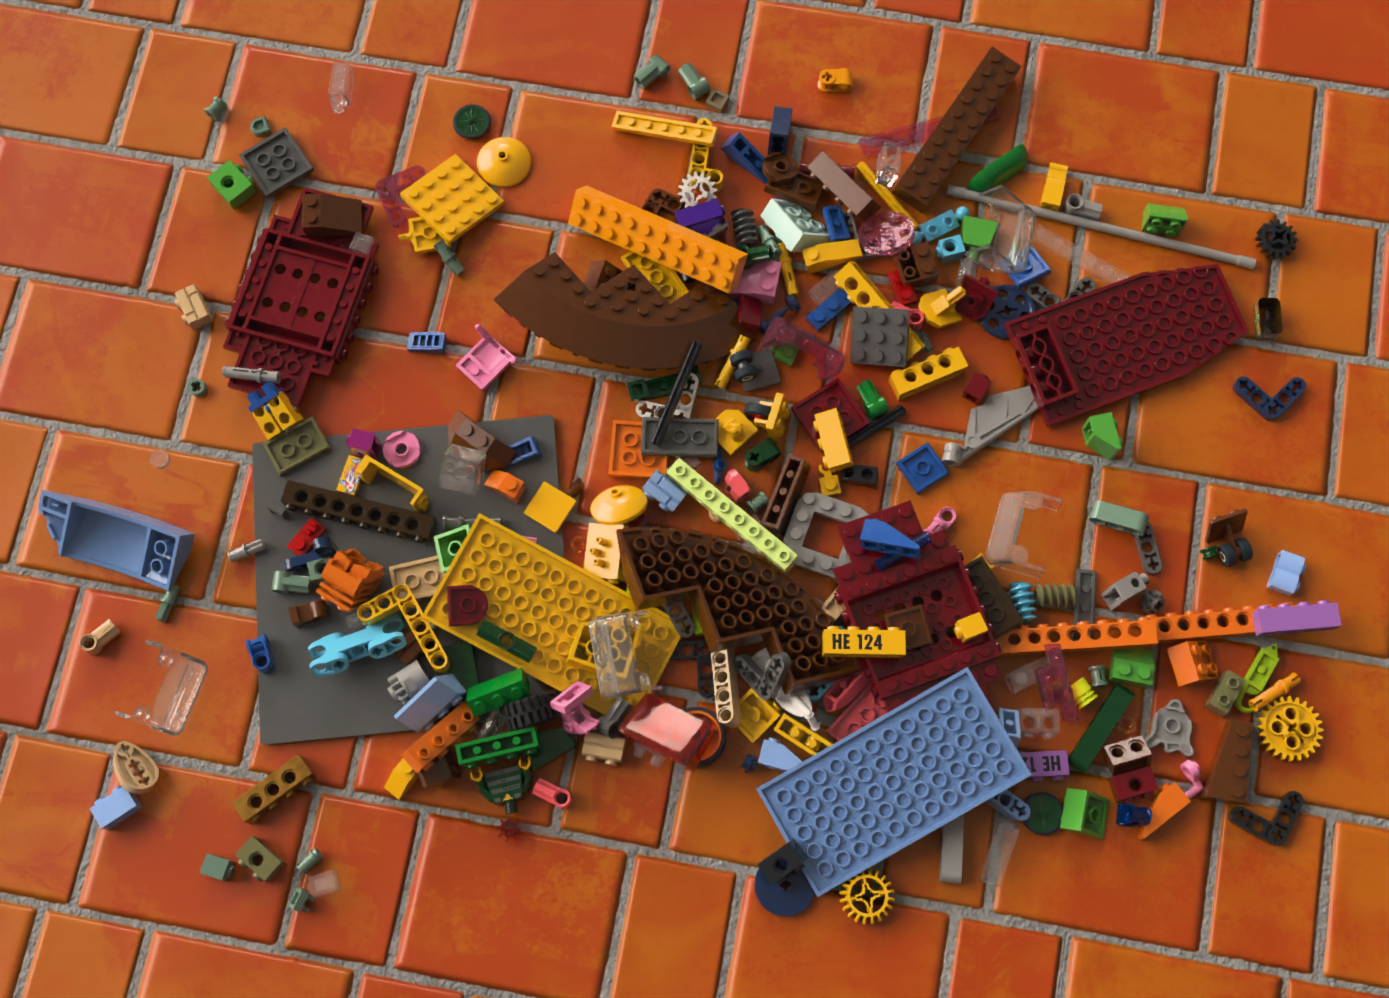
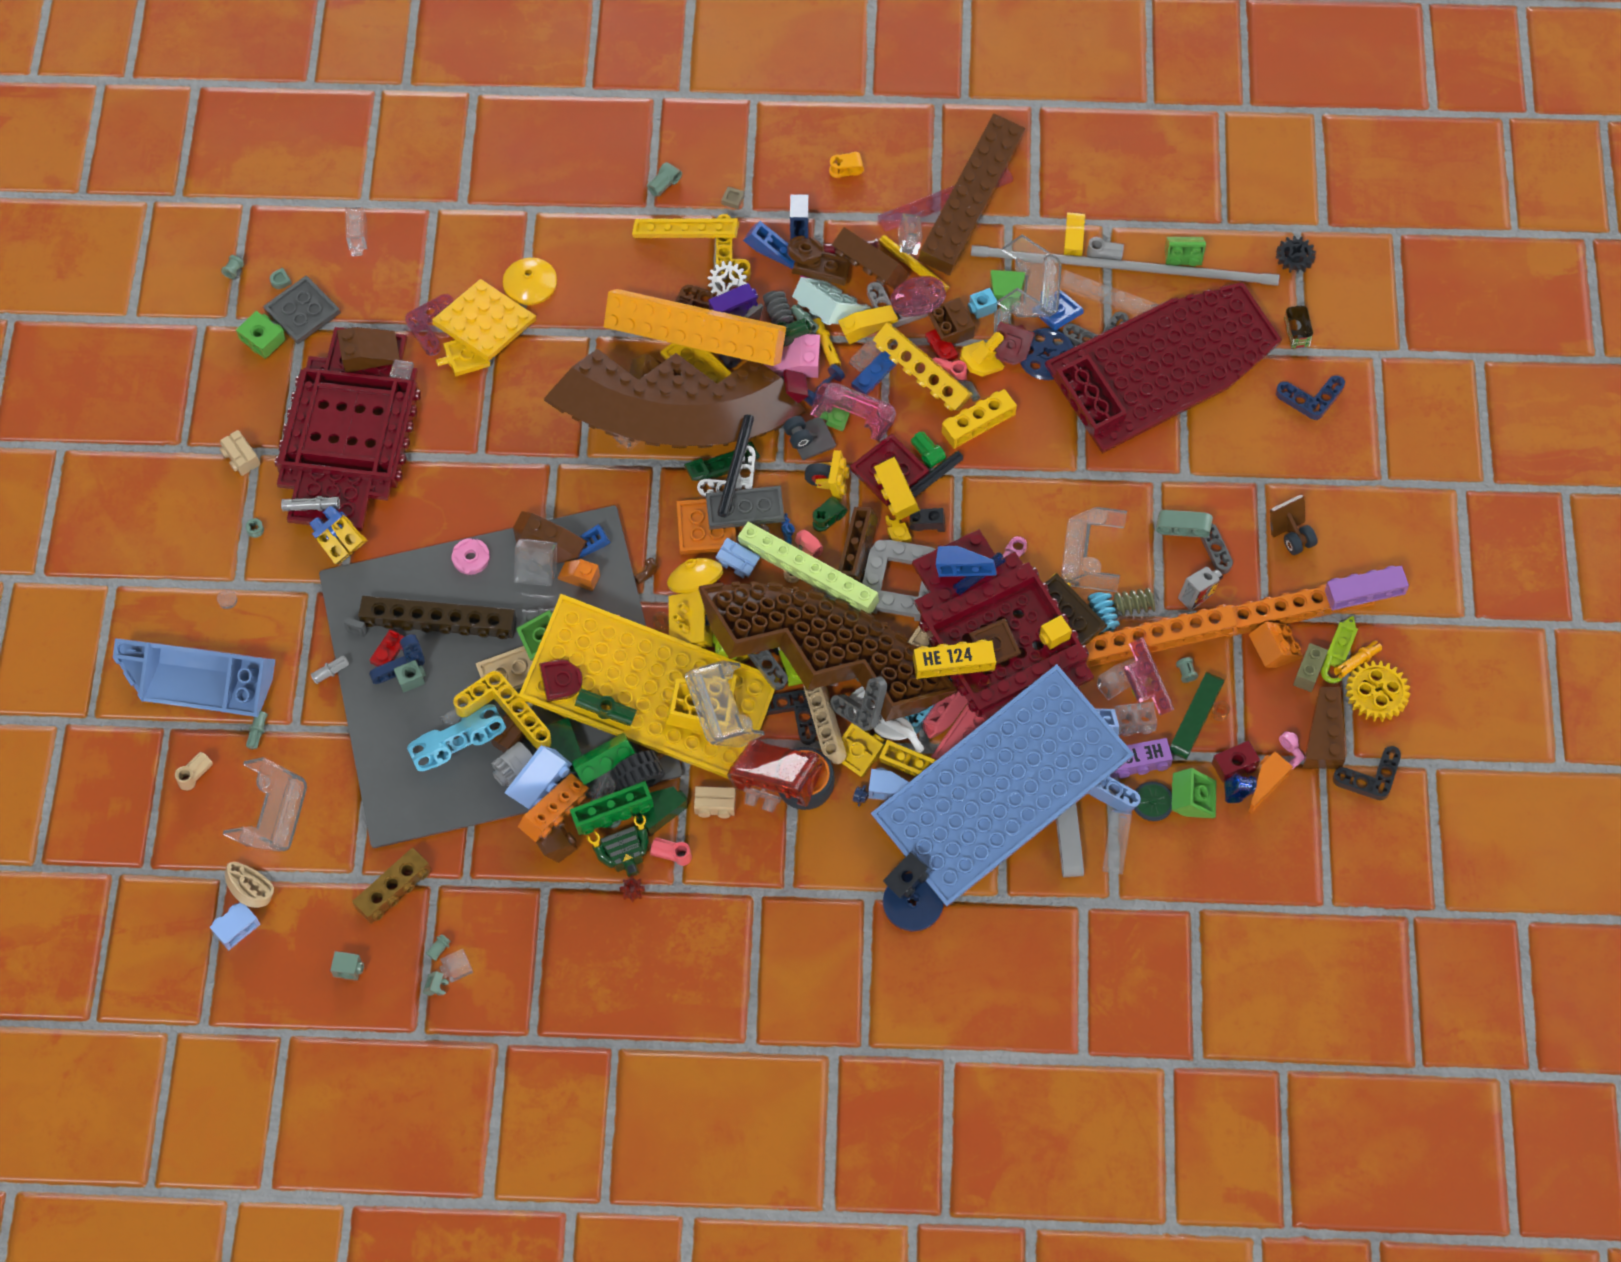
camera: 10 degrees left, 10 degrees down
(259, 650) = (359, 759): blue piece -> none
(271, 862) = (382, 942): olive brick -> none
(286, 582) = (373, 692): sand green piece -> none
(296, 446) = (364, 567): olive tile -> none
(308, 613) = (402, 717): reddish brown leg -> none
(349, 580) = (440, 676): orange piece -> none
(350, 480) = (425, 584): tile -> none
(363, 443) = (433, 553): magenta brick -> none
(368, 469) = (447, 571): yellow panel -> none
(401, 779) = (520, 856): yellow slope -> none
(440, 336) = (480, 461): slope -> none
(448, 257) = (489, 373): sand green pin -> none
(471, 121) = (492, 247): dark green wheel -> none
(485, 360) = (540, 464): bright pink piece -> none
(550, 507) = (626, 588): yellow tile -> none
(579, 720) = (680, 771): bright pink tile -> none
(612, 720) = (718, 774): dark grey piece -> none
(695, 83) = (710, 186): sand green piece -> none
(728, 369) = (783, 438): yellow pin -> none
(734, 430) = (797, 495): yellow piece -> none
(757, 503) = (832, 557): sand green bush -> none
(835, 223) = (867, 293): blue plate -> none
(869, 907) = (1009, 892): yellow gear -> none
(880, 336) = (926, 388): dark grey plate -> none
(922, 468) = (987, 506): blue tile -> none
(940, 225) = (969, 283): medium azure plate -> none
(976, 388) = (1028, 426): dark red brick -> none
(989, 422) = (1046, 455): light grey wing -> none
(1000, 170) = (1024, 223): green brick -> none
(1082, 693) = (1174, 686): neon yellow piece -> none
(1085, 590) = (1163, 598): dark grey tile -> none
(1102, 436) = (1155, 450): bright green slope -> none
(1128, 759) = (1225, 734): reddish brown brick -> none
(1132, 667) = (1218, 657): bright green slope -> none
(1152, 601) = (1228, 594): dark grey gear -> none
(1172, 729) = (1265, 708): light grey tile -> none
(1209, 552) = (1276, 544): dark green bush -> none
(1286, 573) = (1352, 552): light blue brick -> none

